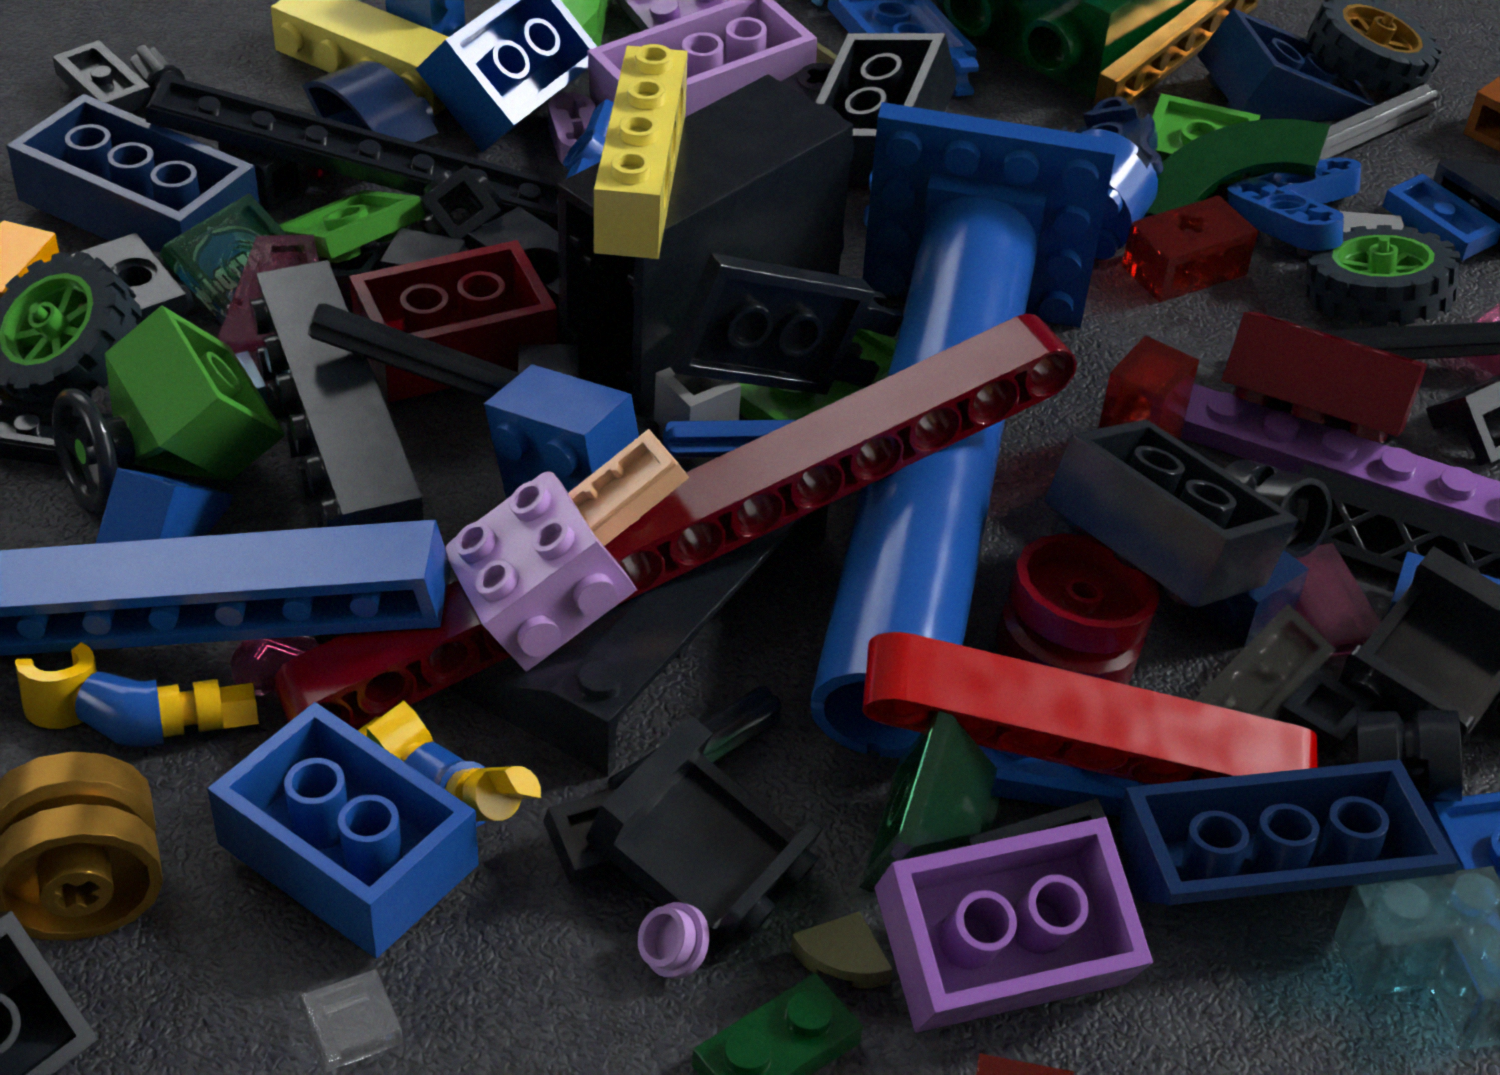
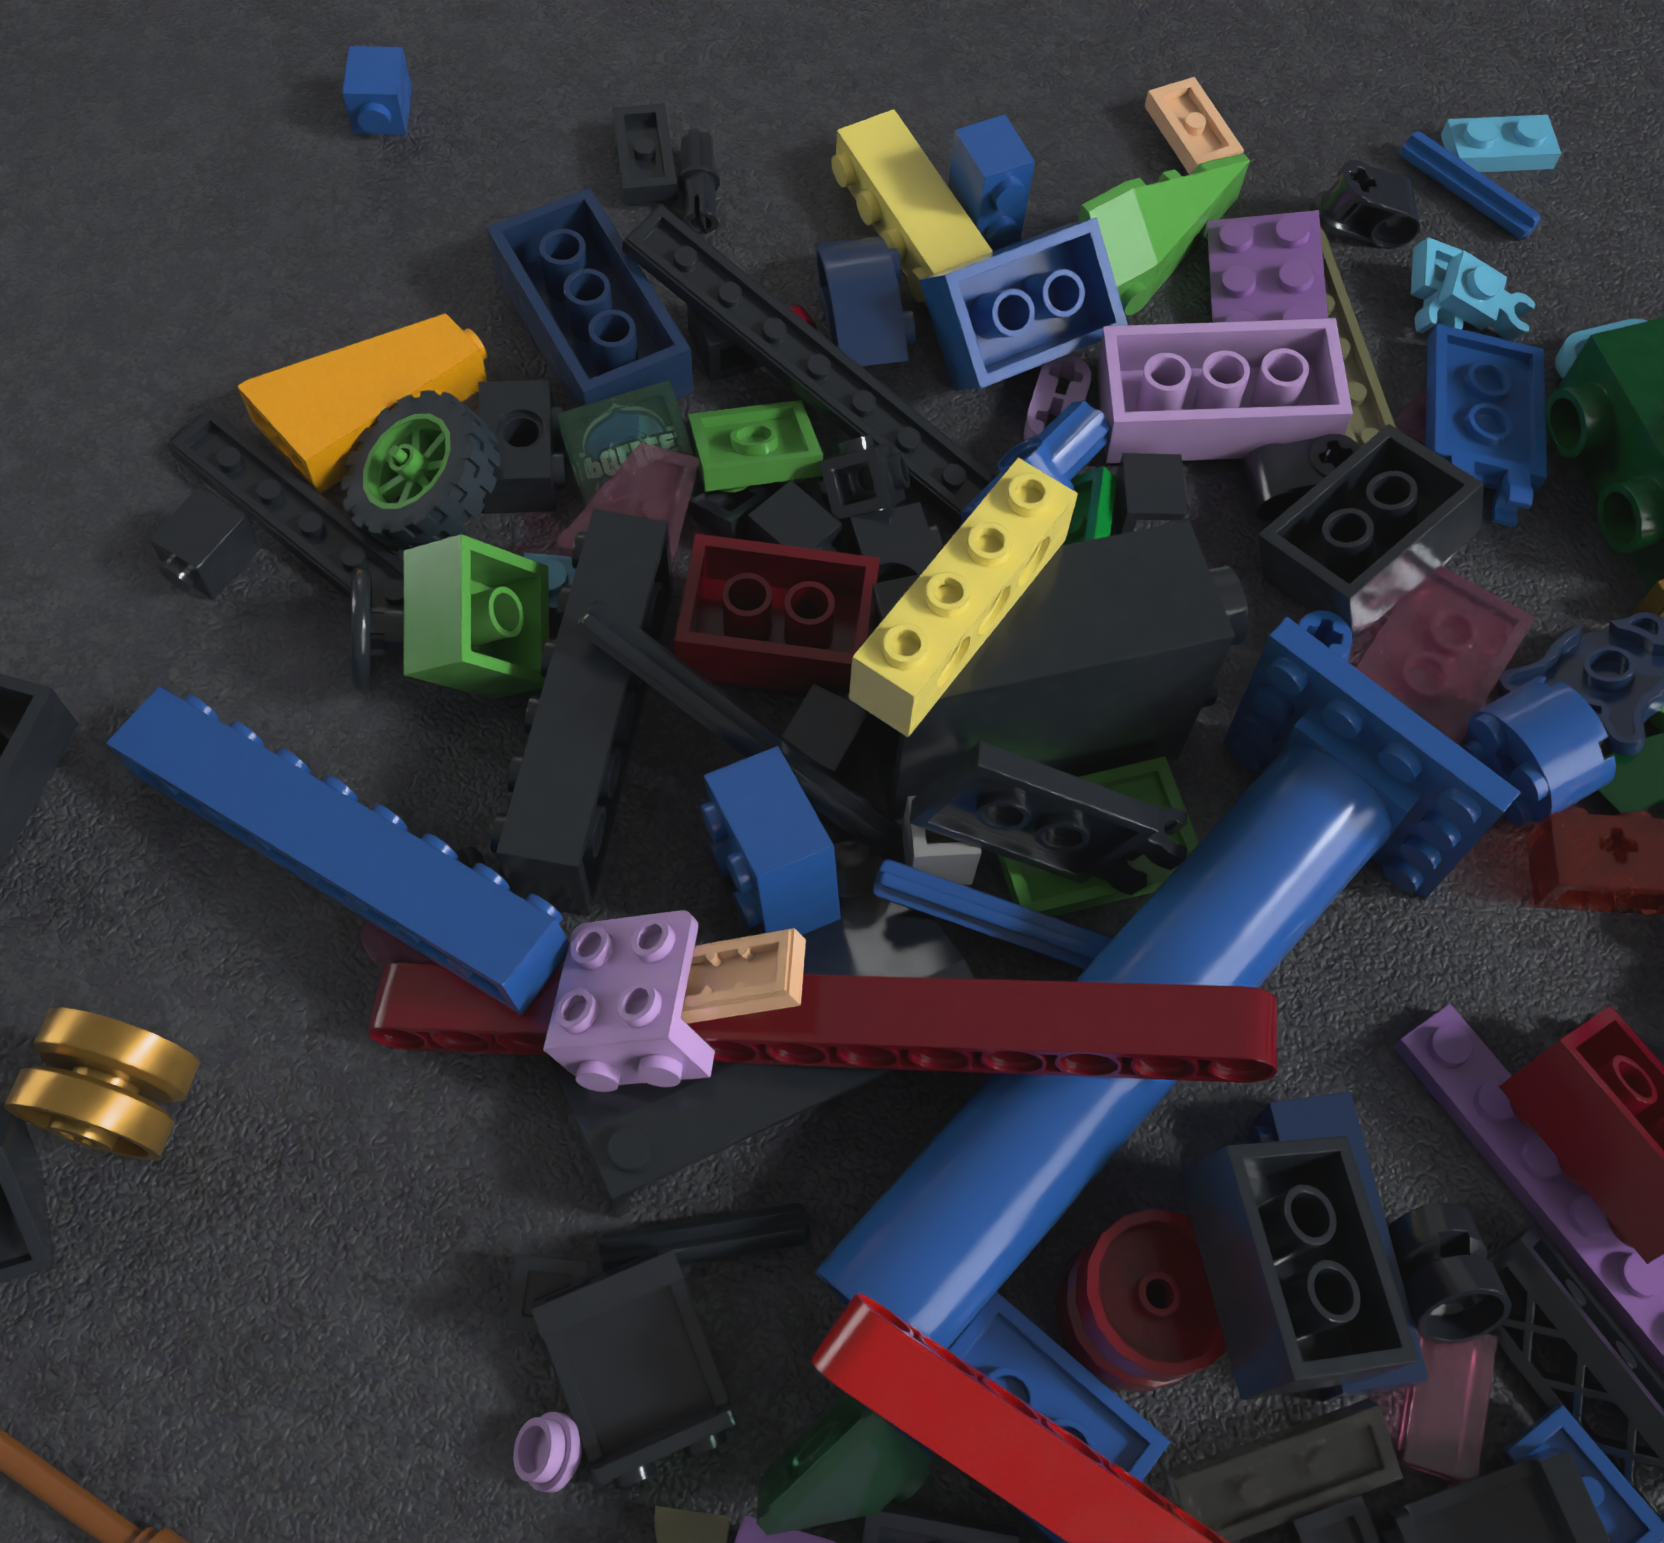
camera: 30 degrees right, 20 degrees up
(128, 709) = (258, 942): yellow piece -> none
(159, 508) = (396, 727): blue slope -> none
(345, 828) = (334, 1179): blue brick -> none
(352, 1019) = (248, 1369): clear tile -> none
(489, 791) = (453, 1154): yellow piece -> none
(1150, 385) = (1397, 1074): clear red brick -> none

